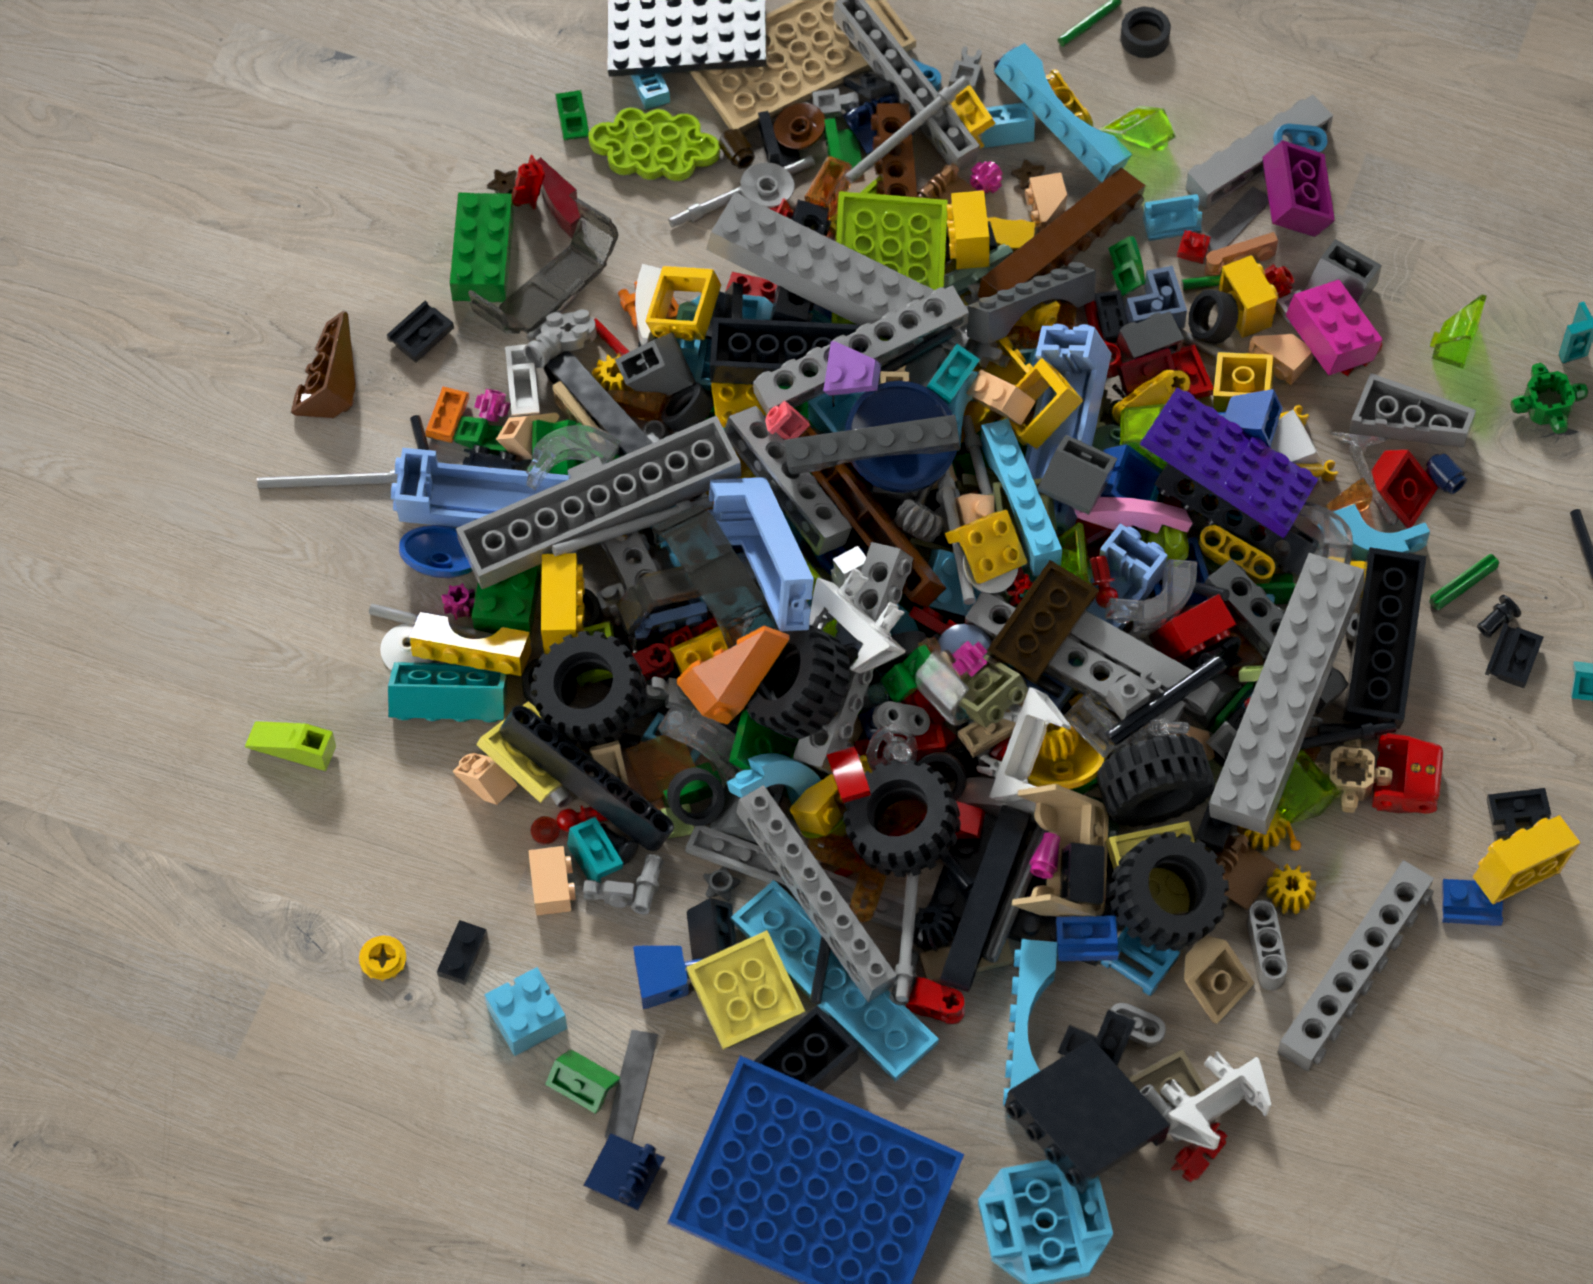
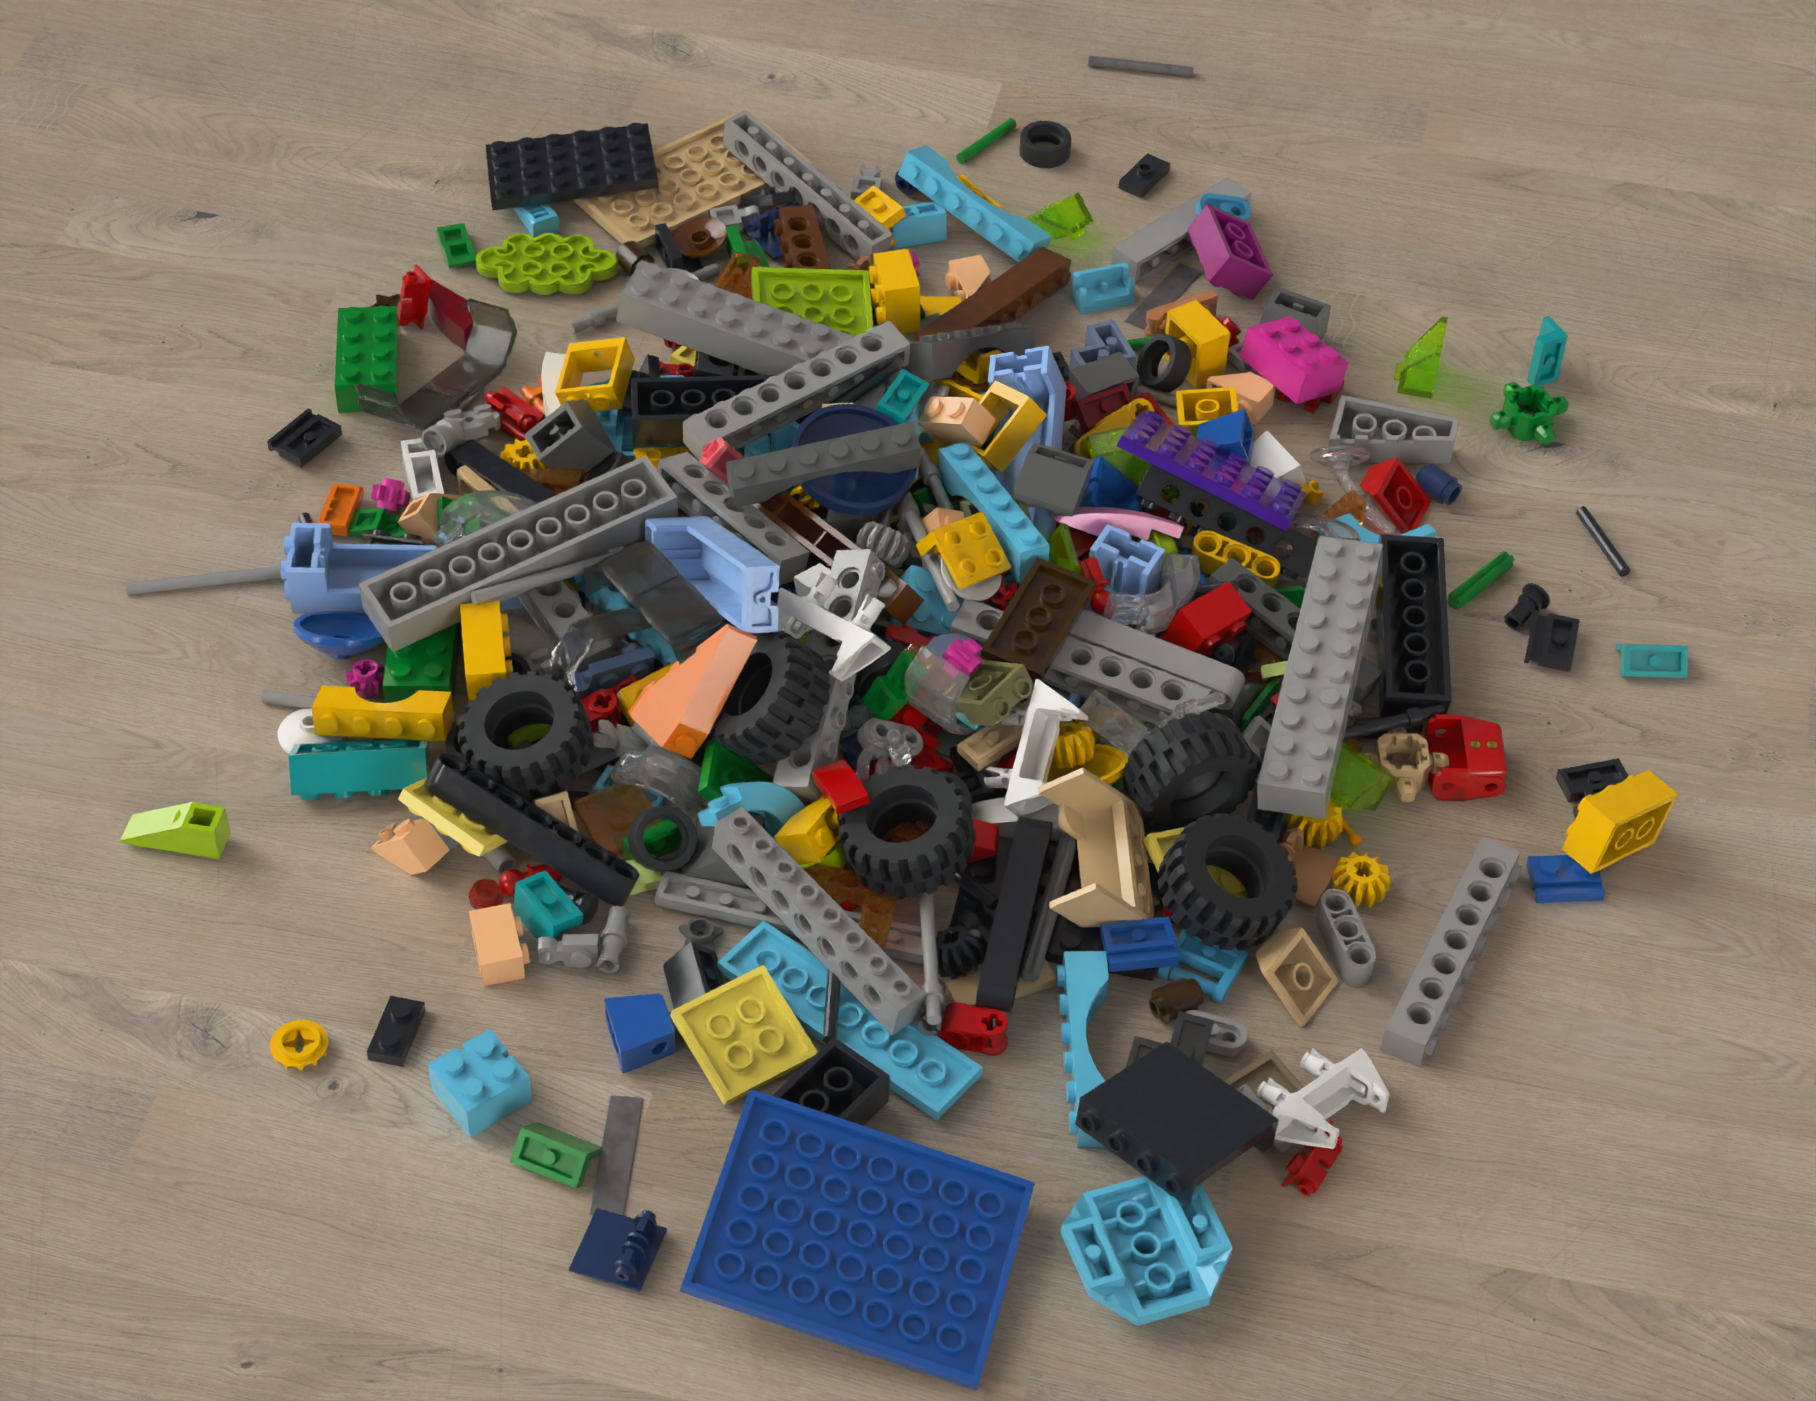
camera: 10 degrees left, 15 degrees down
(330, 375) = (206, 484): reddish brown wedge -> none
(611, 317) = (514, 409): none -> red hinge
(850, 371) = (790, 399): medium lavender wing -> none
(944, 98) = (850, 193): light grey bar -> none
(1027, 167) = (941, 264): dark brown plate -> none
(1045, 859) = (1078, 864): dark pink cone -> none
(1082, 873) = (1125, 870): black panel -> none
(1111, 990) = (1175, 997): none -> dark brown brick
(1128, 264) = (1063, 329): green slope -> none
(1131, 694) = (1150, 681): light grey brick -> none
(1165, 700) = (1188, 686): black axle -> none
(1193, 247) = (1130, 312): red tile -> none
(1236, 76) = (1144, 175): none -> black plate

